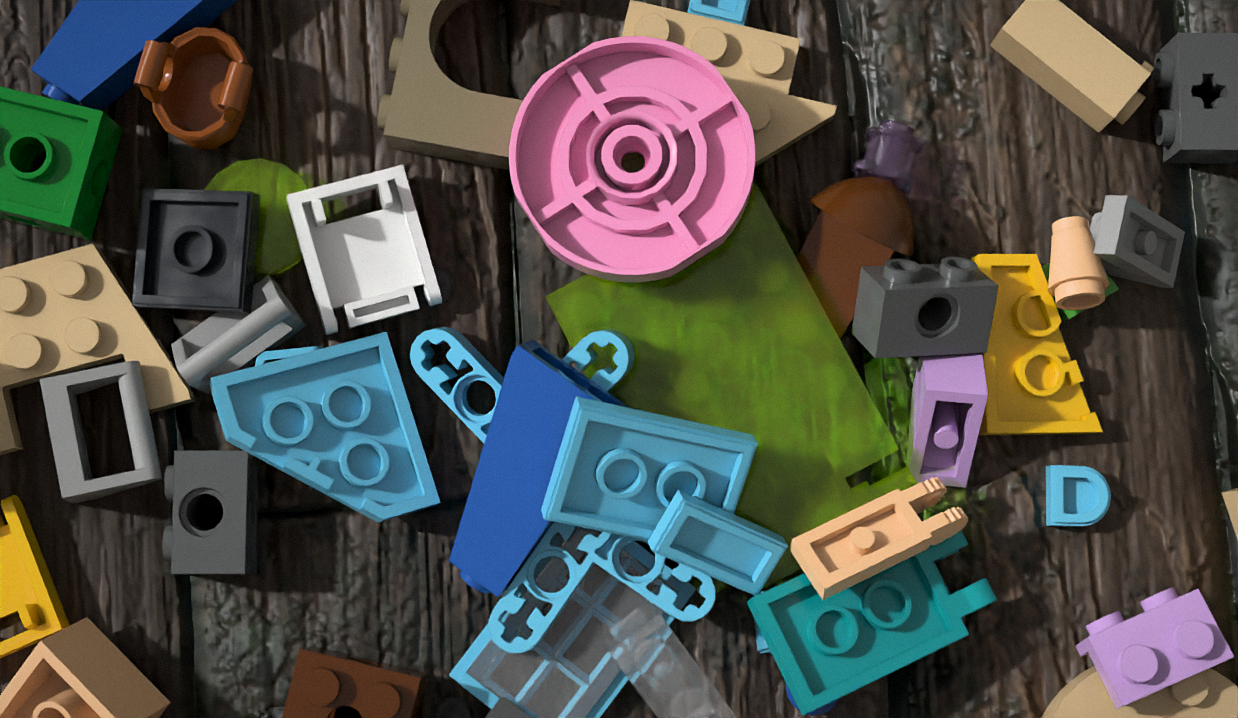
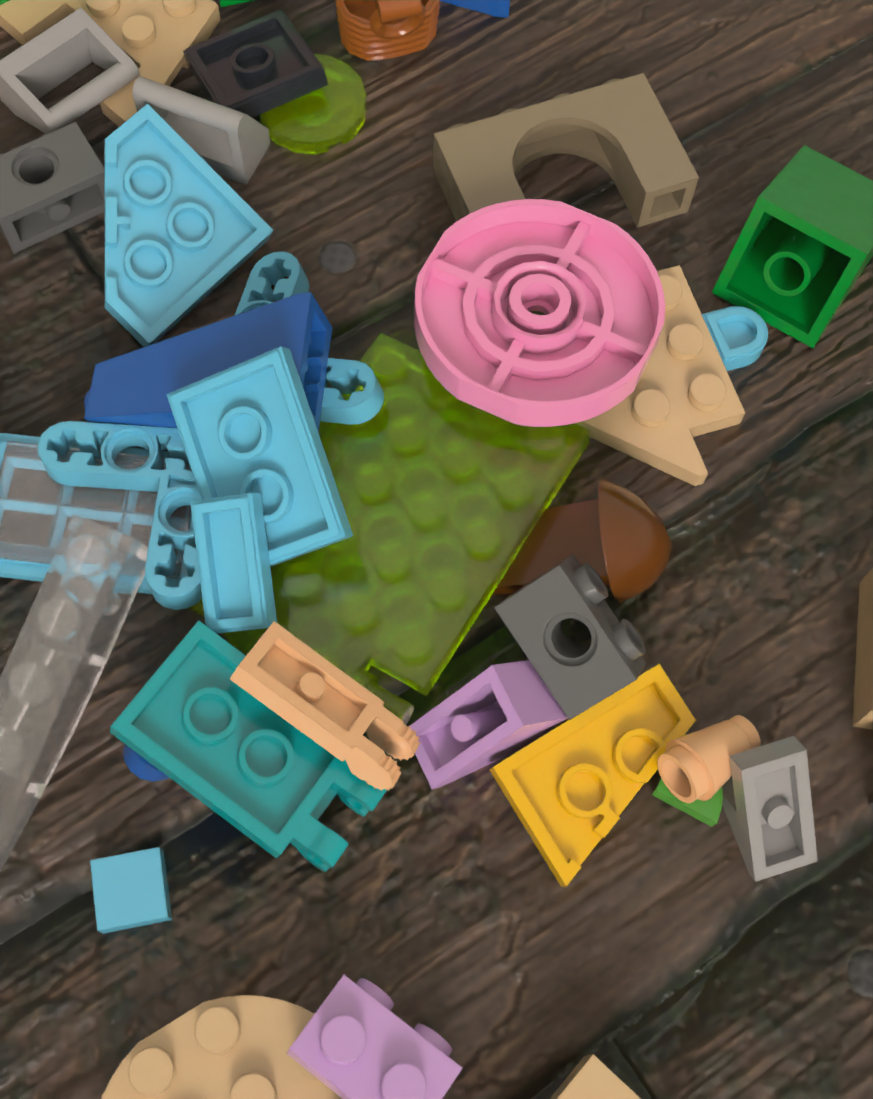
camera: 55 degrees right, 15 degrees down
(368, 259) = (322, 190): white container -> none
(889, 153) = (696, 539): clear purple brick -> none
(1075, 496) = (487, 901): medium azure tile -> none

